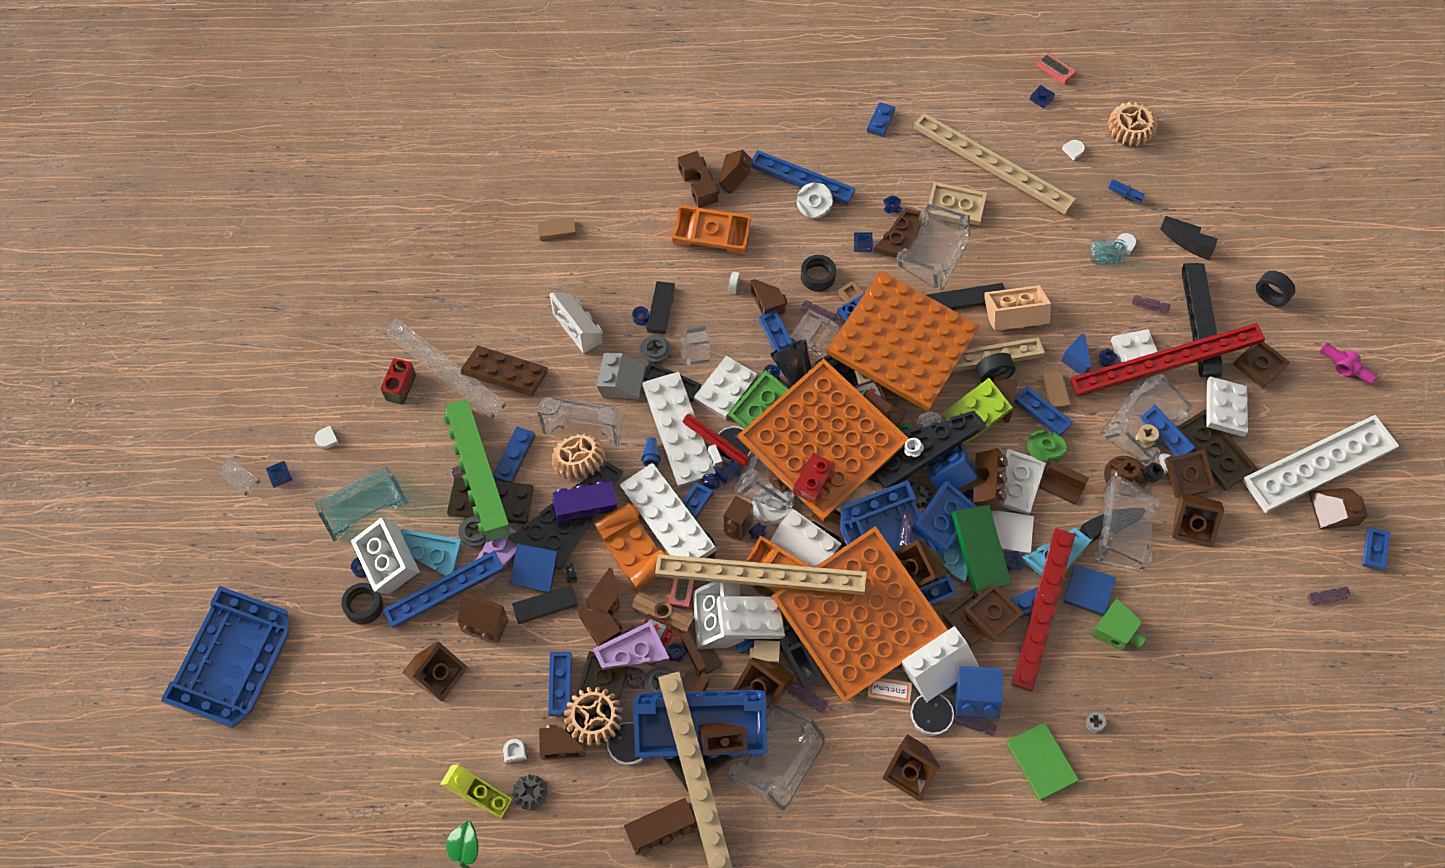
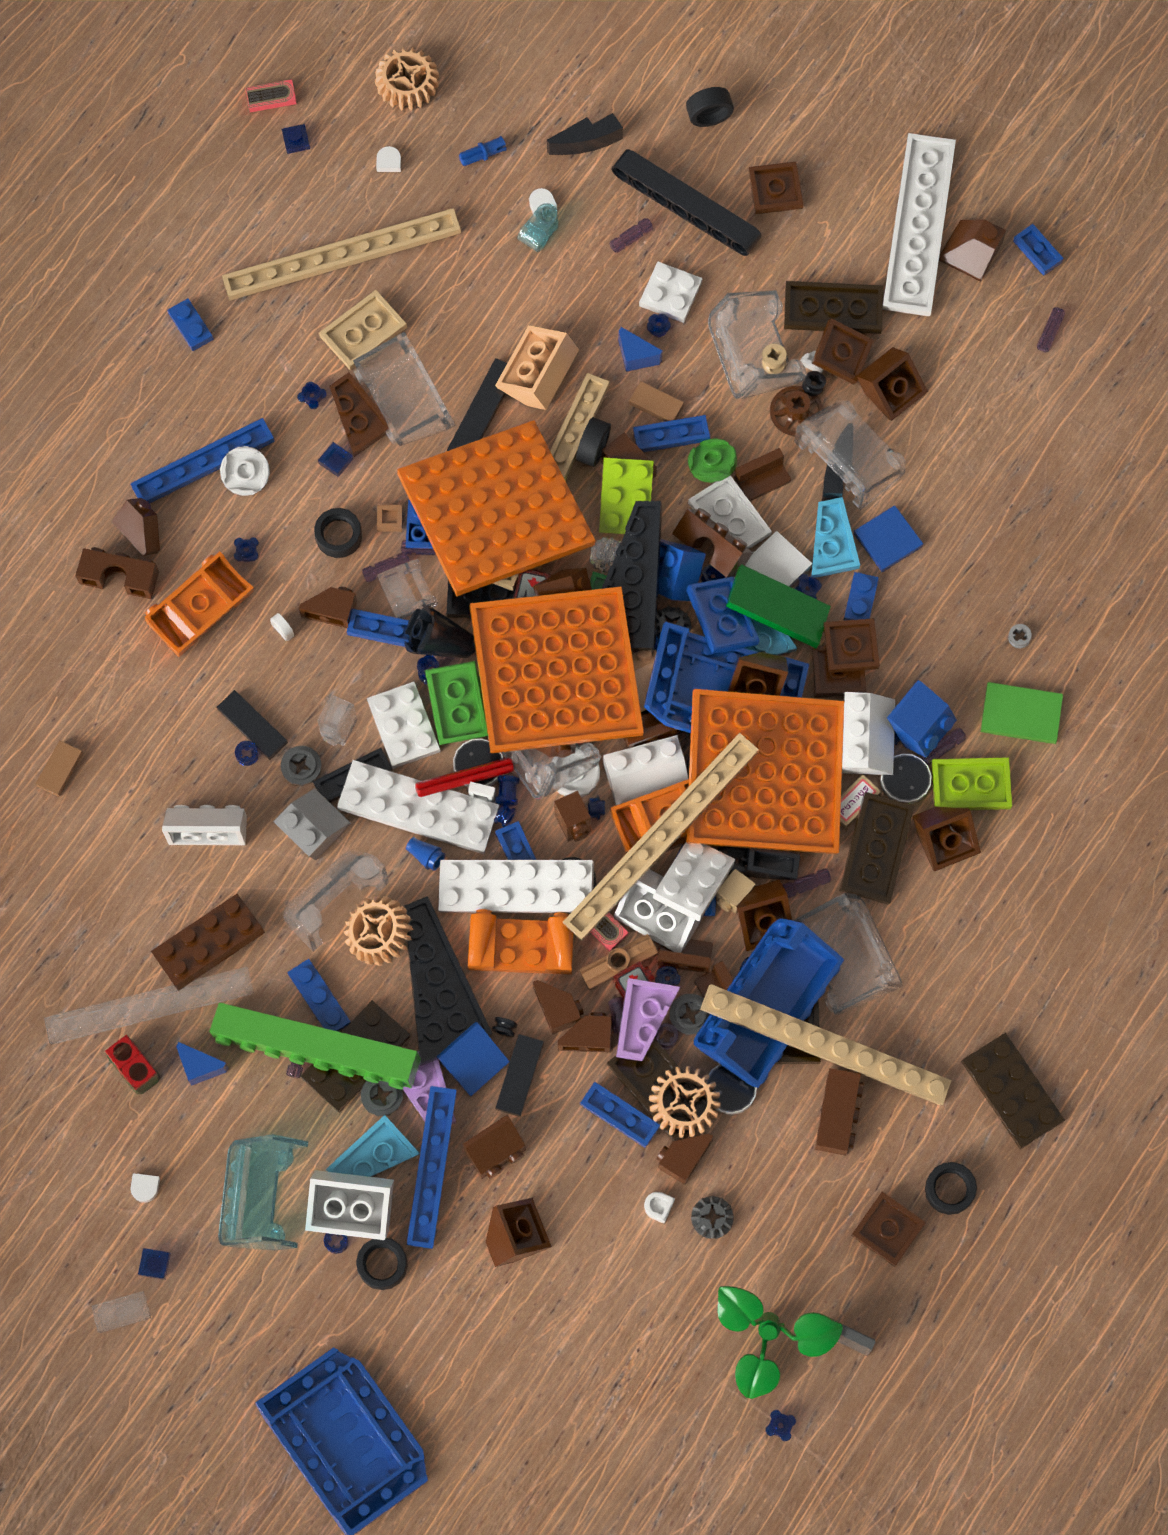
camera: 55 degrees left, 10 degrees up
(421, 415) = (199, 1065): none -> blue slope
(476, 791) = (674, 1269): neon yellow slope -> none
(584, 501) = (438, 957): dark purple brick -> none
(721, 738) = (800, 991): reddish brown slope -> none
(767, 238) = (246, 556): none -> clear blue plate
(814, 478) = (599, 710): red brick -> none
(866, 726) = (876, 848): none -> dark brown plate
(905, 530) = (714, 665): clear purple axle -> none
(913, 443) = (630, 584): white plate -> none
(963, 761) = (972, 783): none -> lime plate
(1043, 610) = (879, 596): red plate -> none
(1119, 627) = (946, 541): bright green torso -> none
(1167, 359) = (709, 274): red plate -> none
(1168, 432) = (785, 334): blue tile -> none
(1227, 406) = (798, 258): white plate -> none
(1348, 363) = (836, 109): dark pink pin -> none

